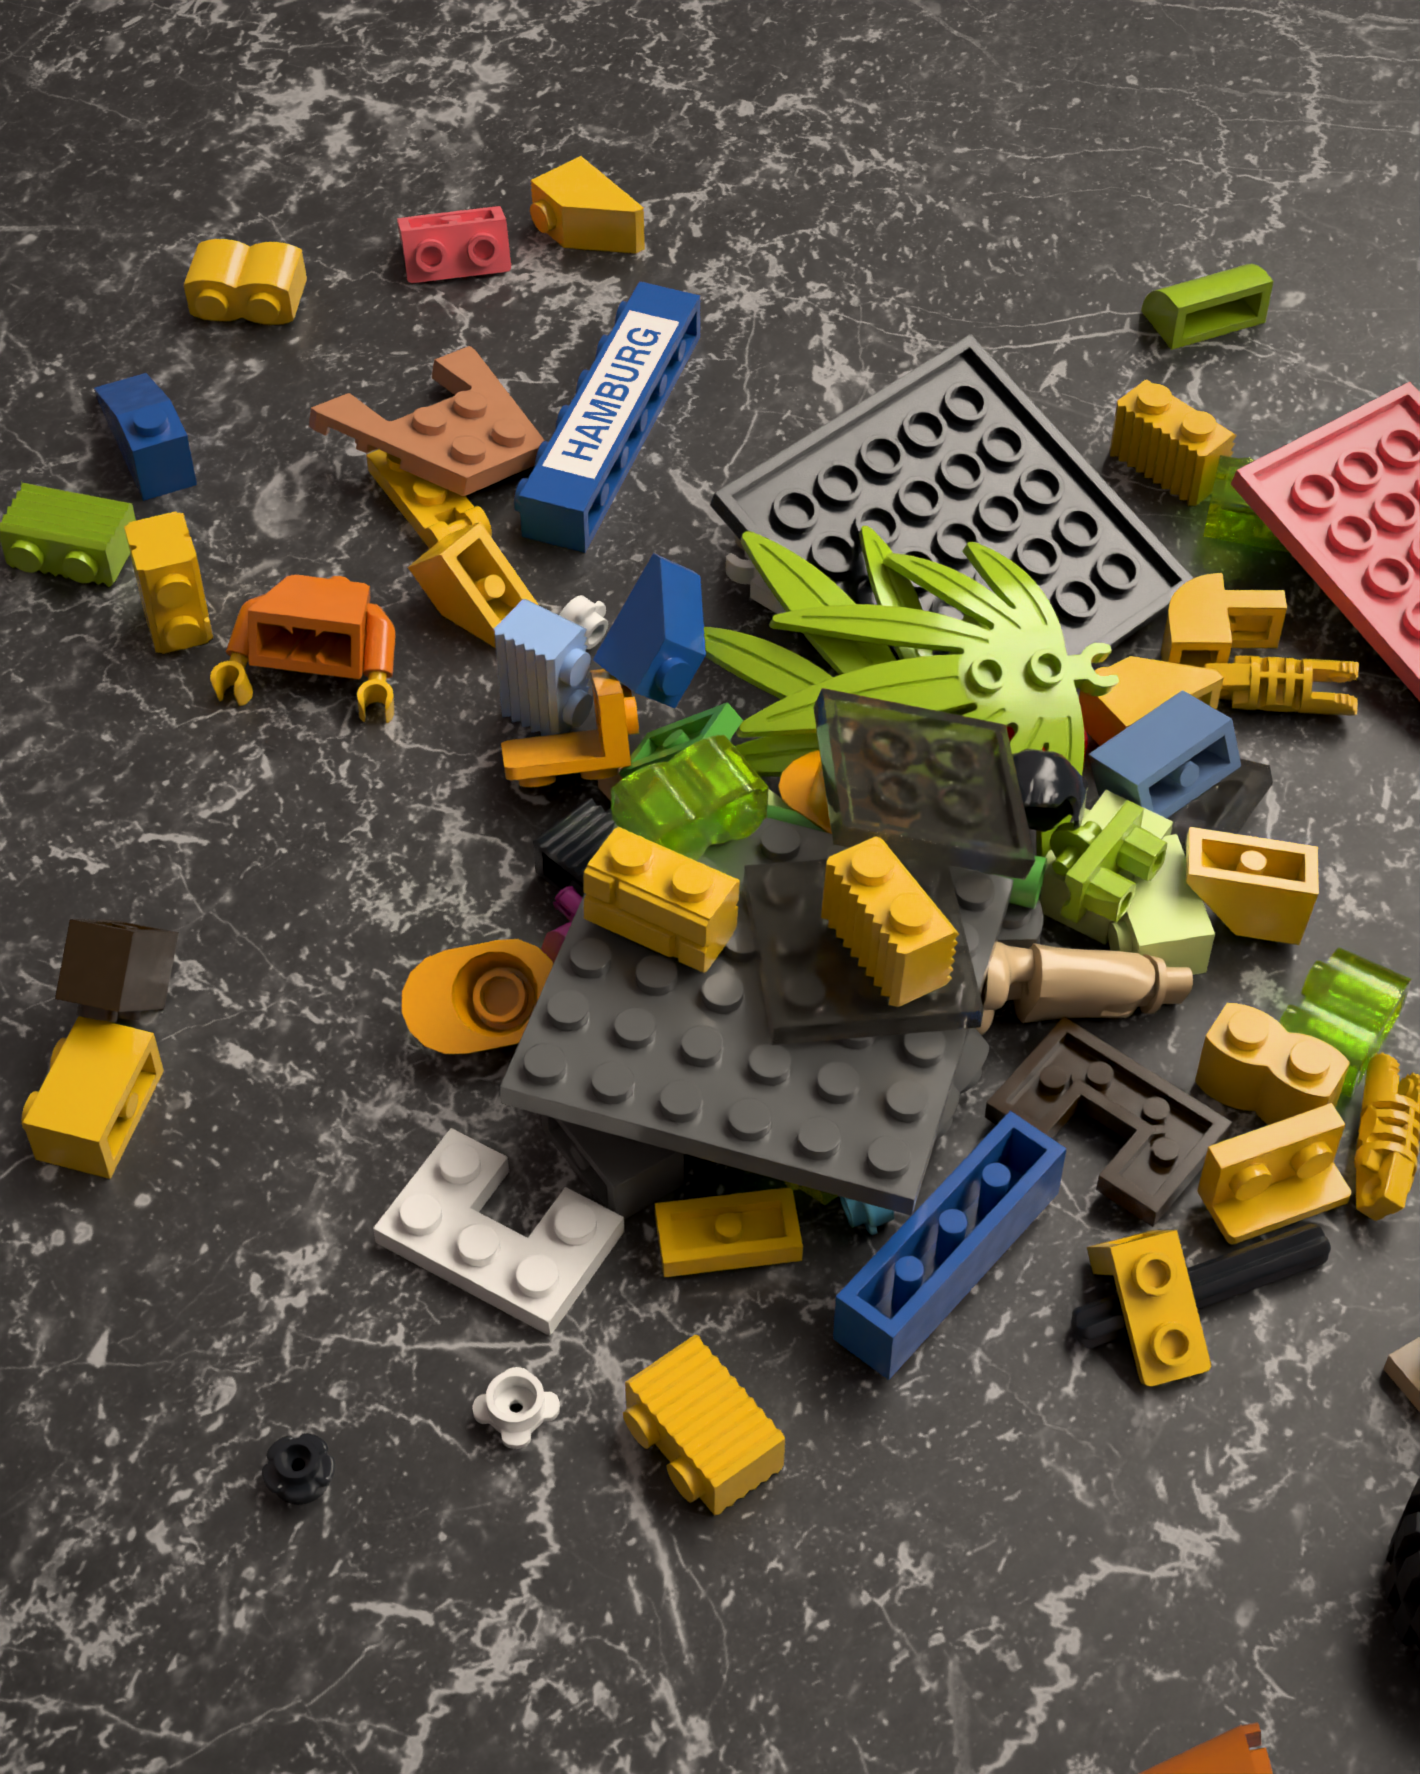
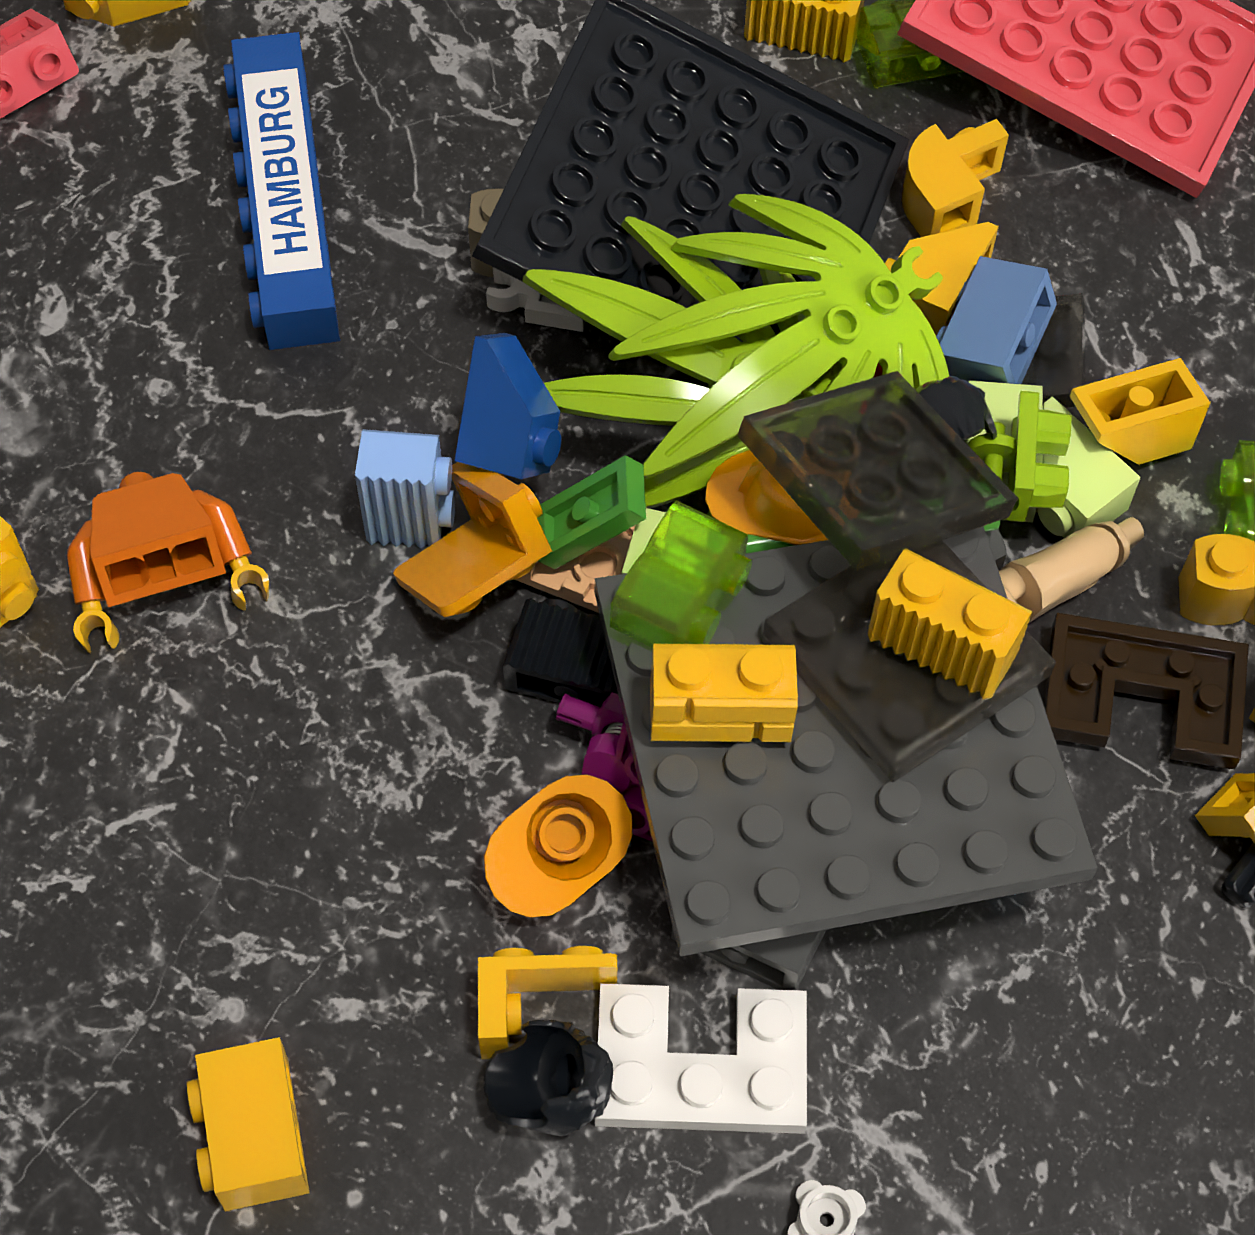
camera: 30 degrees left, 10 degrees up
(115, 968) = (202, 990): dark brown brick -> none
(350, 1176) = (549, 1079): none -> black hair
(366, 1083) = (522, 971): none -> yellow bracket
(425, 505) = (157, 348): yellow plate -> none
(453, 443) = (156, 282): nougat wing -> none
(470, 581) = (273, 425): yellow slope -> none
(589, 616) = (394, 413): white plate -> none
(703, 1426) = (1000, 1153): yellow brick -> none
(728, 1232) = (901, 961): yellow plate -> none
(948, 1245) = (1102, 915): blue brick -> none
(1286, 684) = (1039, 206): yellow hinge -> none

